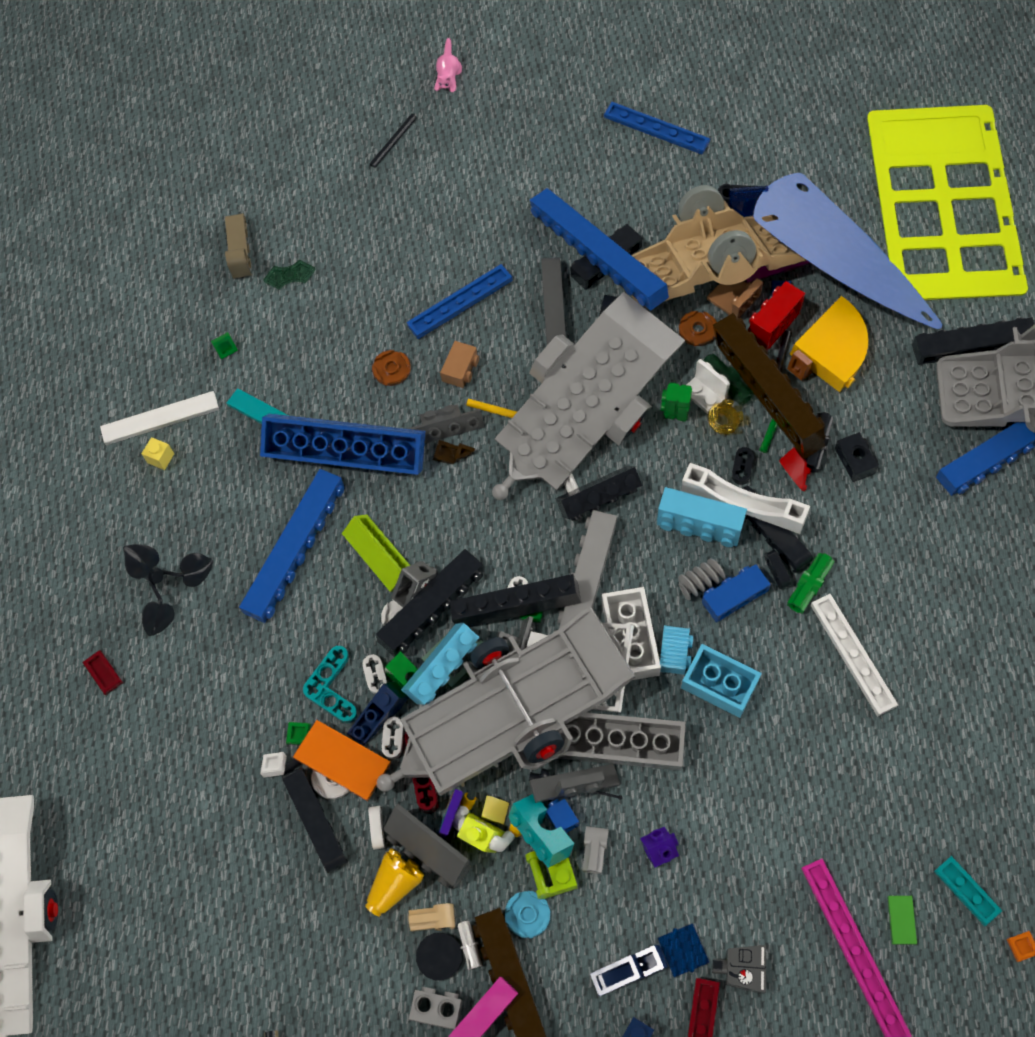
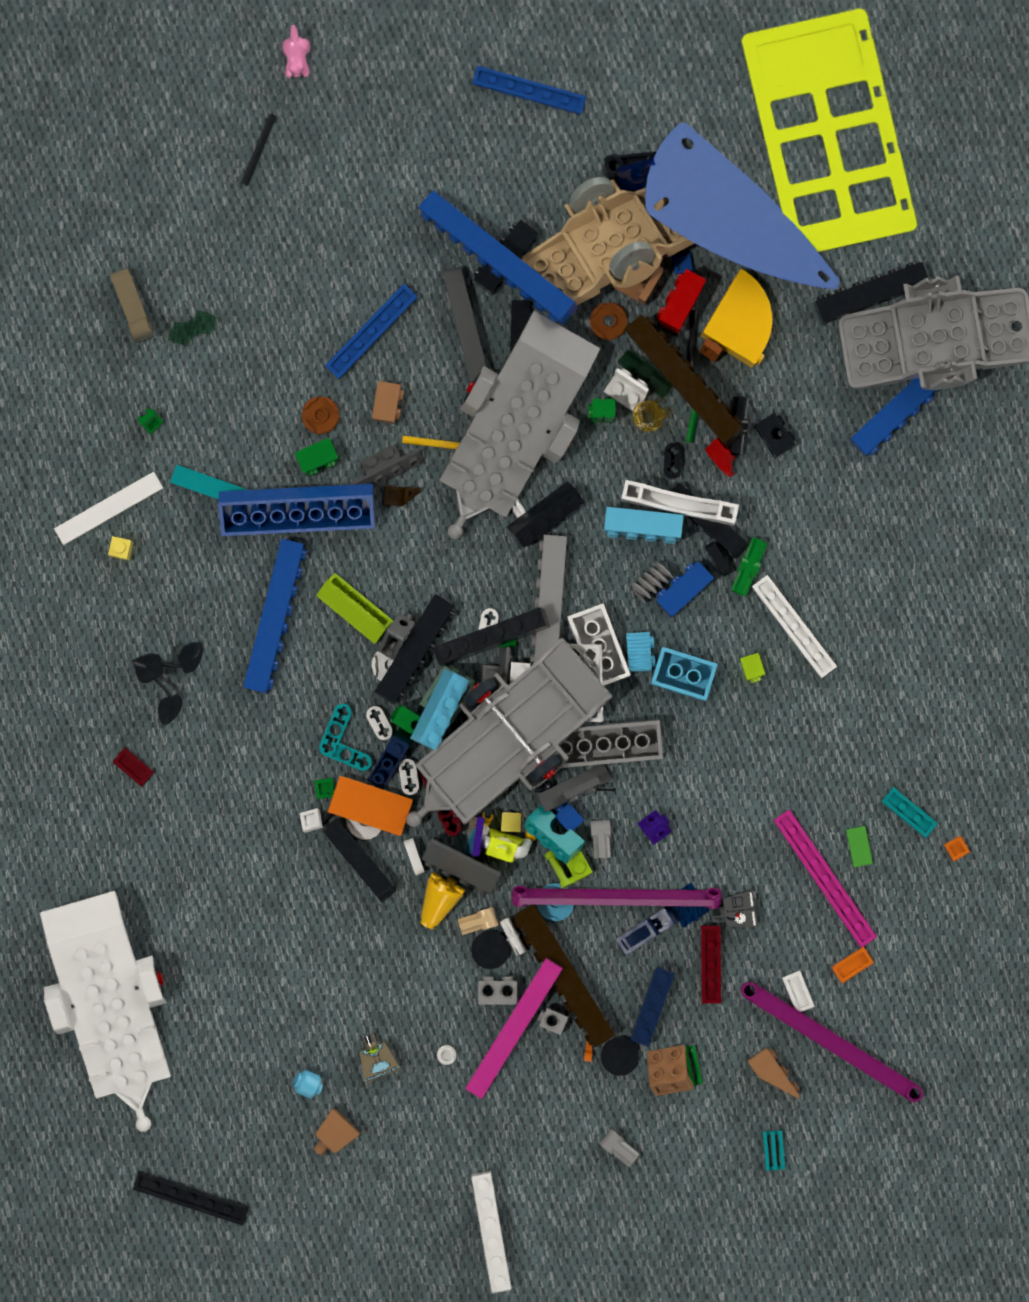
camera: 20 degrees left, 20 degrees up
(376, 401) = (317, 457): none -> green brick
(712, 945) = (525, 896): none -> magenta piece
(800, 688) = (752, 667): none -> lime brick

